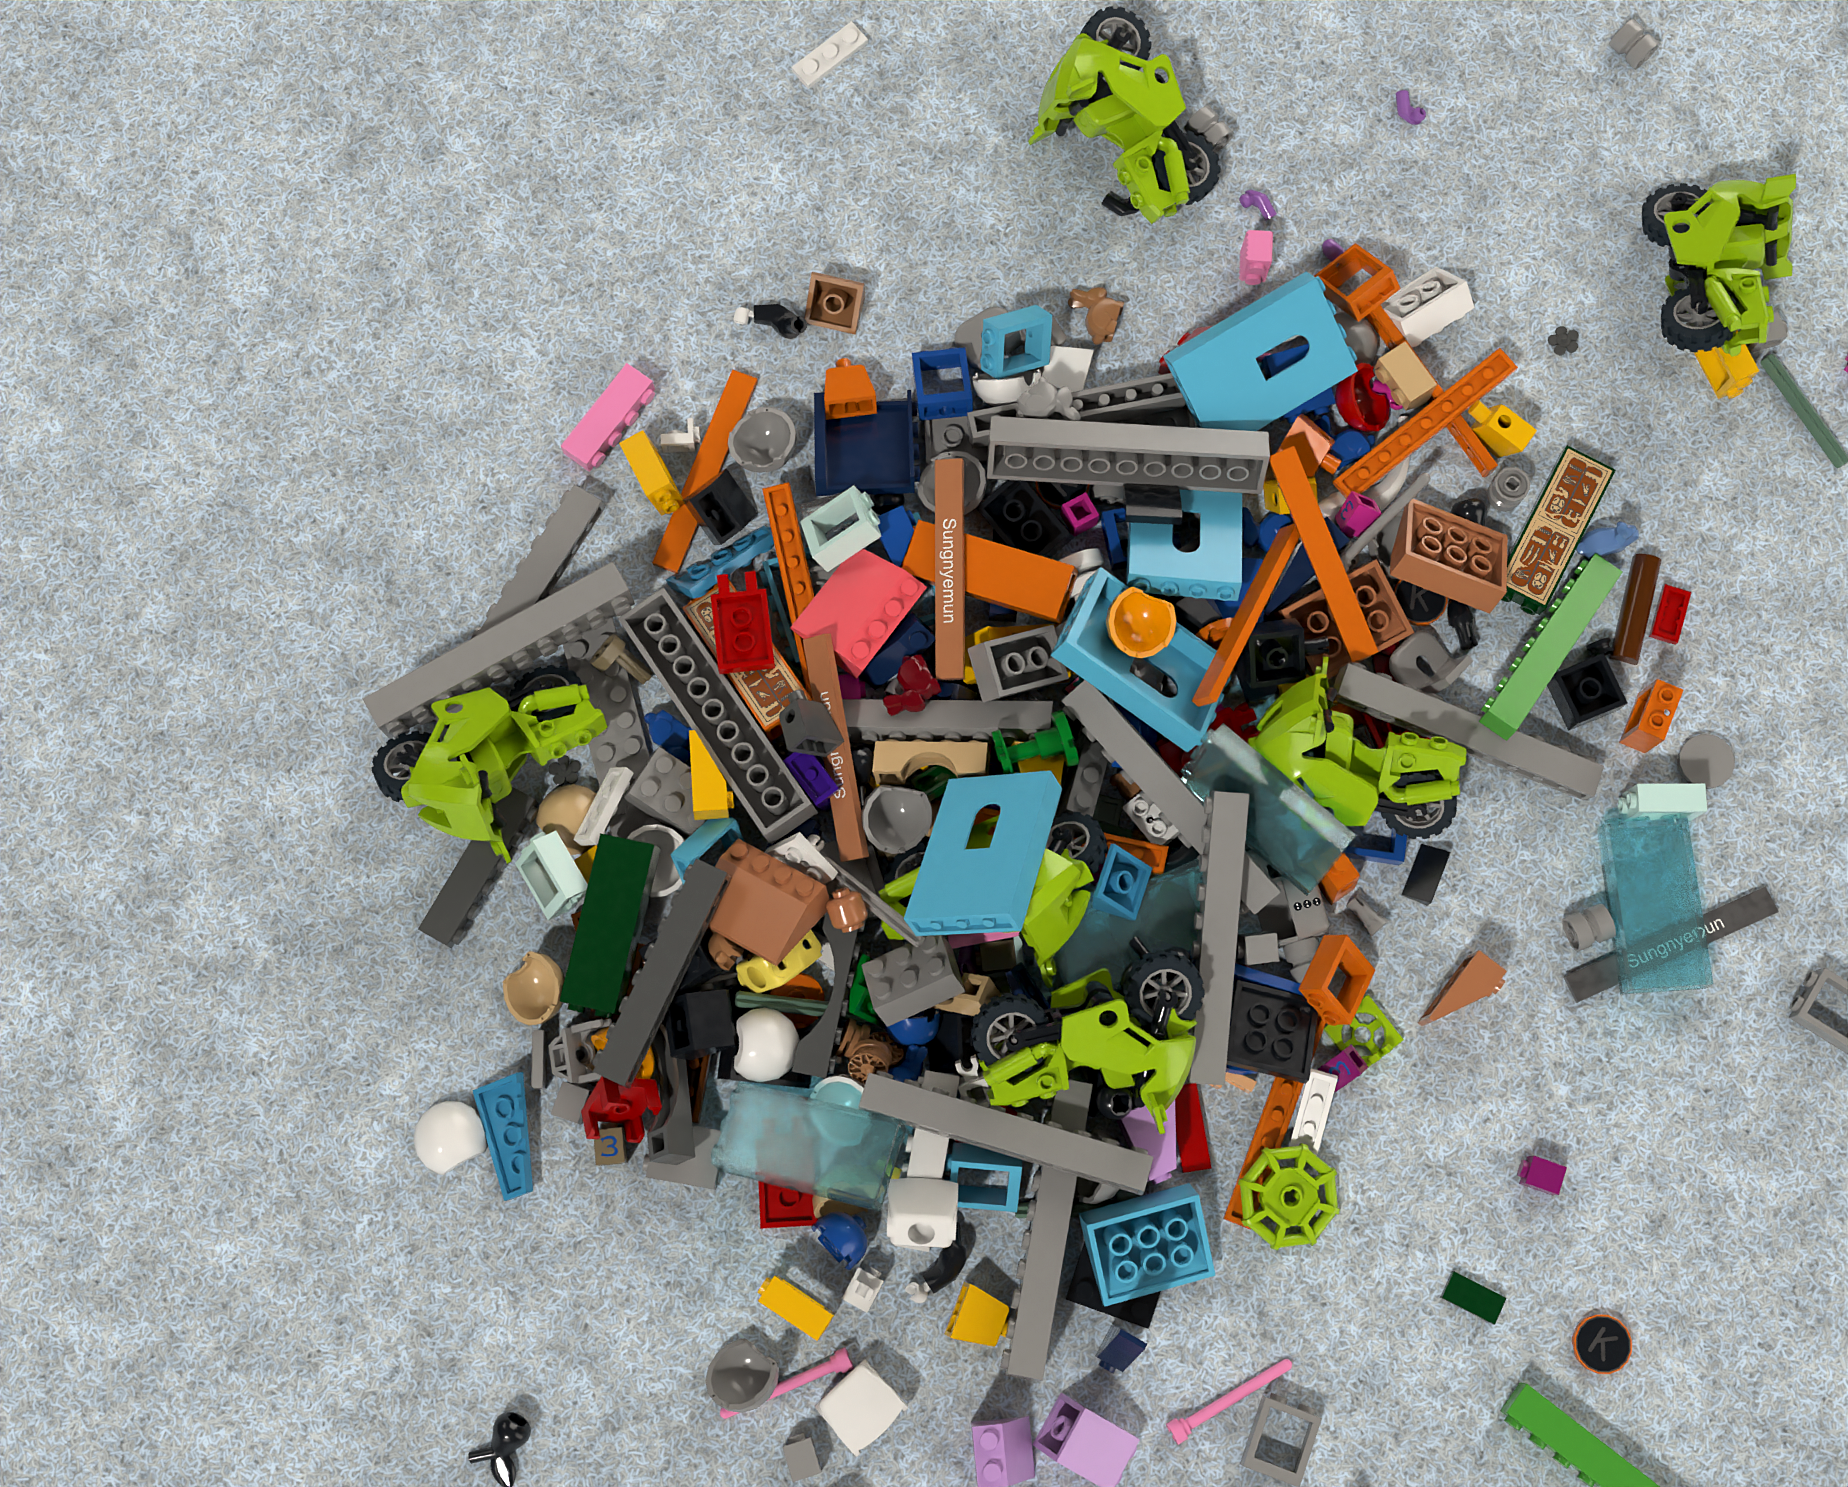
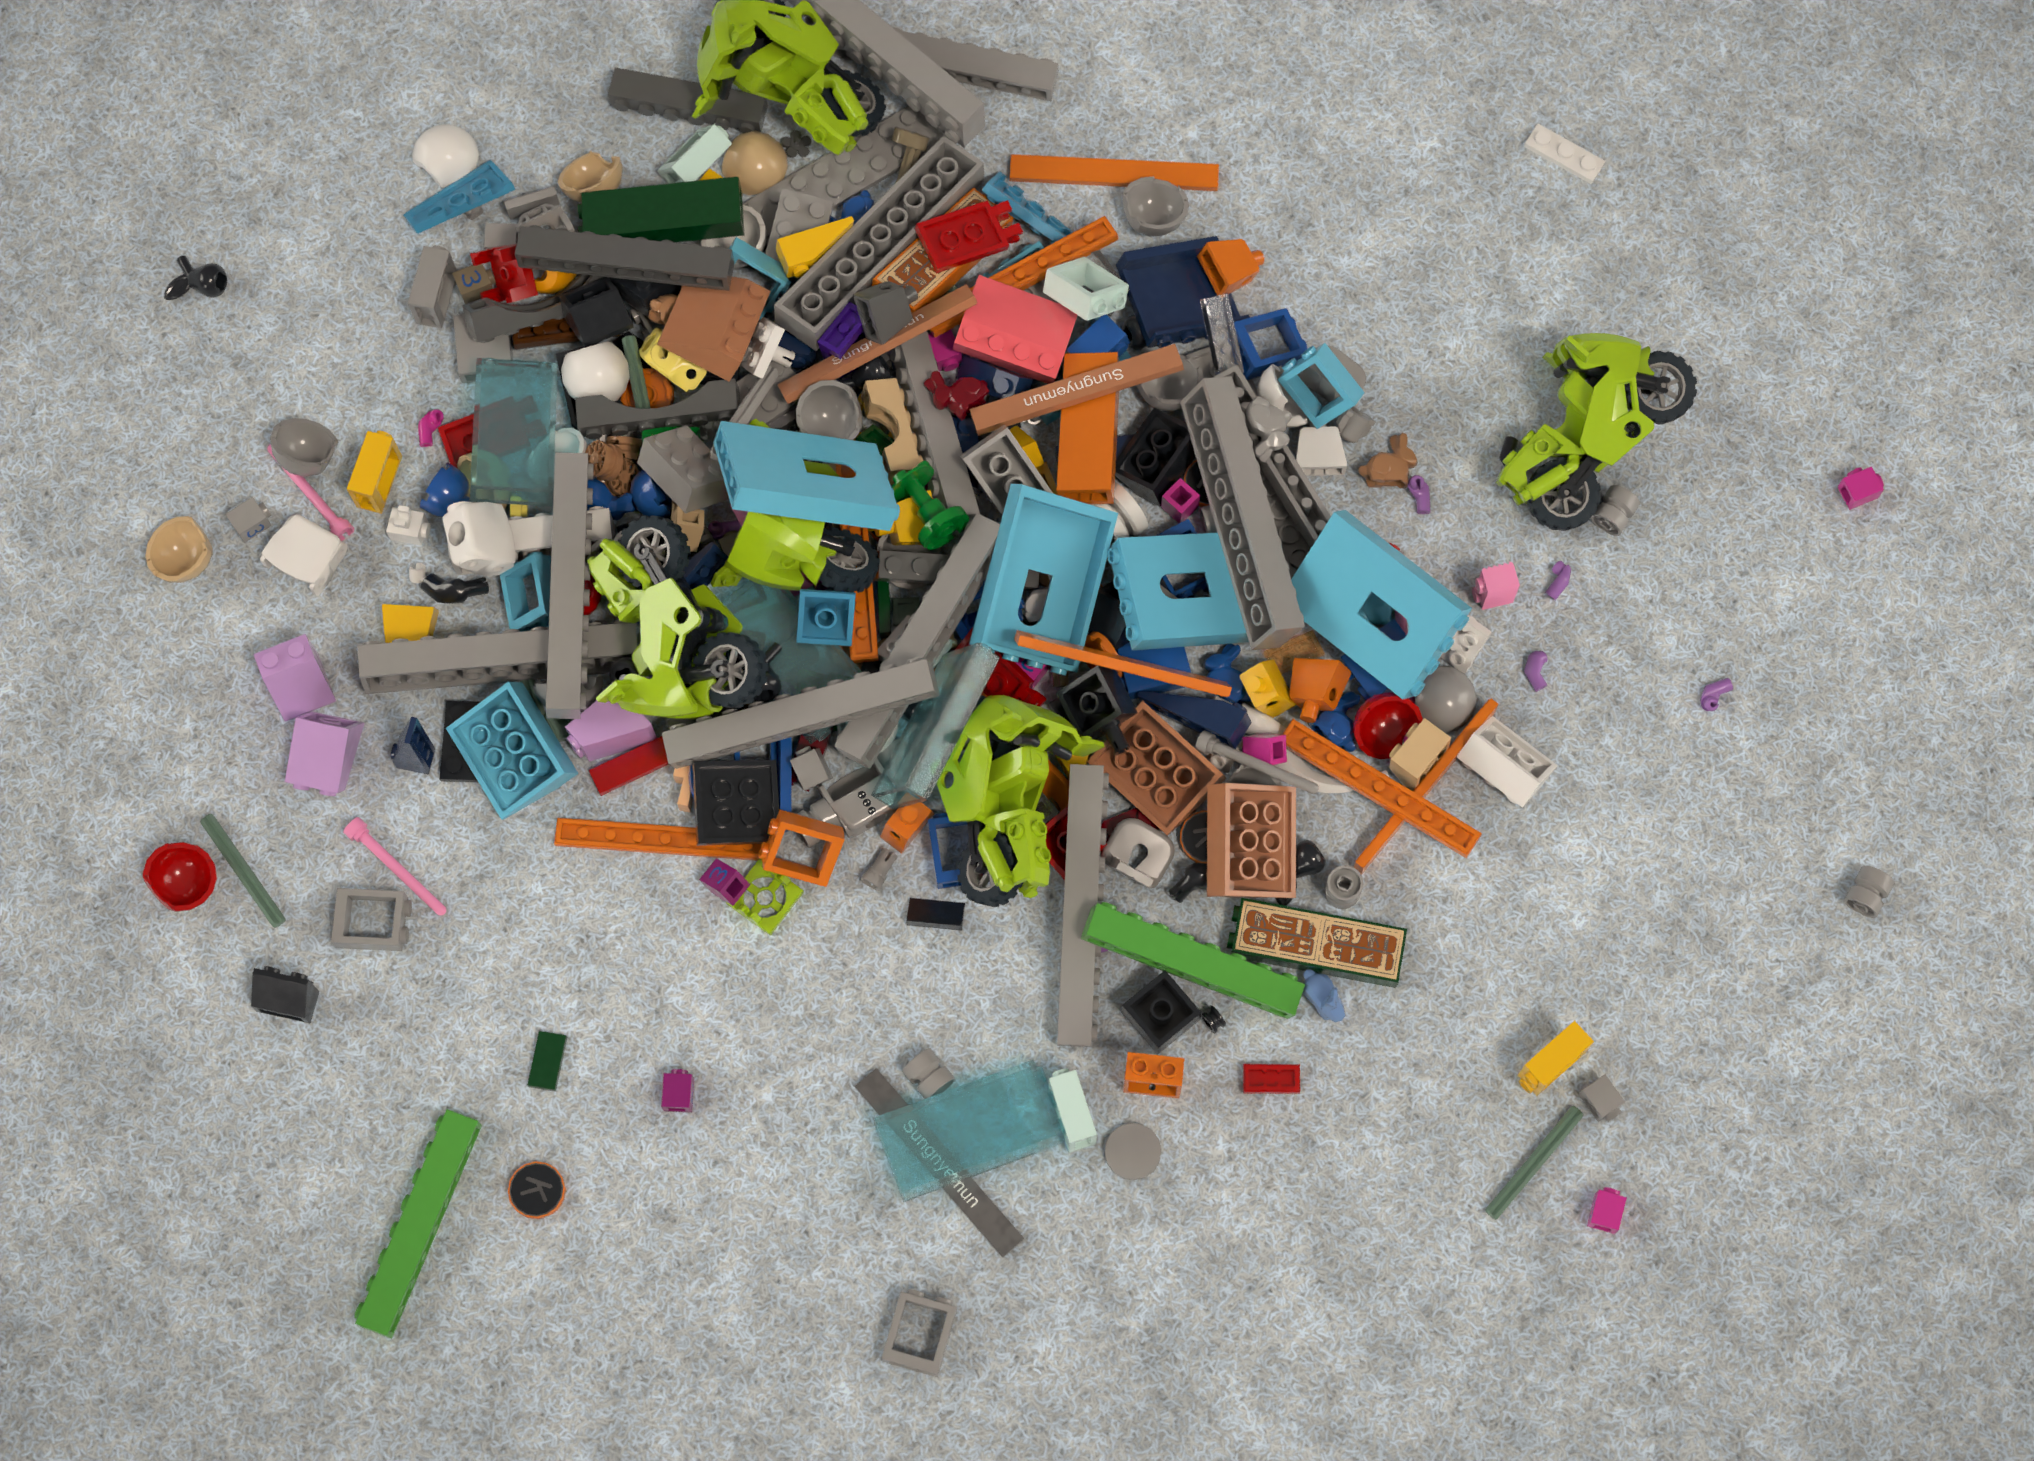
camera: 75 degrees right, 5 degrees down
(603, 806) = (767, 177): white plate -> none
(604, 1189) = (432, 286): none -> light grey window
(608, 417) = (1134, 74): bright pink brick -> none
(652, 473) = (1089, 122): yellow window -> none
(681, 442) = (1134, 143): white bracket -> none
(720, 508) = (1079, 191): black slope -> none
(753, 1237) = (428, 425): none -> dark pink arm
(773, 315) = (1284, 183): black arm -> none
(834, 303) = (1313, 230): medium nougat slope -> none
(846, 910) = (727, 391): nougat head -> none
(927, 418) = (1221, 333): none -> clear plate
(1134, 296) = (1421, 493): none -> medium lavender arm
(1140, 623) = (1073, 560): light orange cylinder -> none
(1152, 504) = (1200, 547): black slope -> none
(1273, 1191) = (606, 859): lime plate -> none
(1314, 1110) = (673, 865): white plate -> none
(1322, 554) = (1206, 717): orange tile -> none
(1369, 294) = (1496, 697): orange window -> none
(1473, 980) = (836, 972): nougat slope -> none
(1500, 429) = (1396, 868): yellow torso -> none
(1564, 341) = (1523, 908): dark grey plant -> none
(1635, 608) = (1266, 1045): reddish brown brick -> none
(1735, 231) = (1662, 1008): lime piece -> none

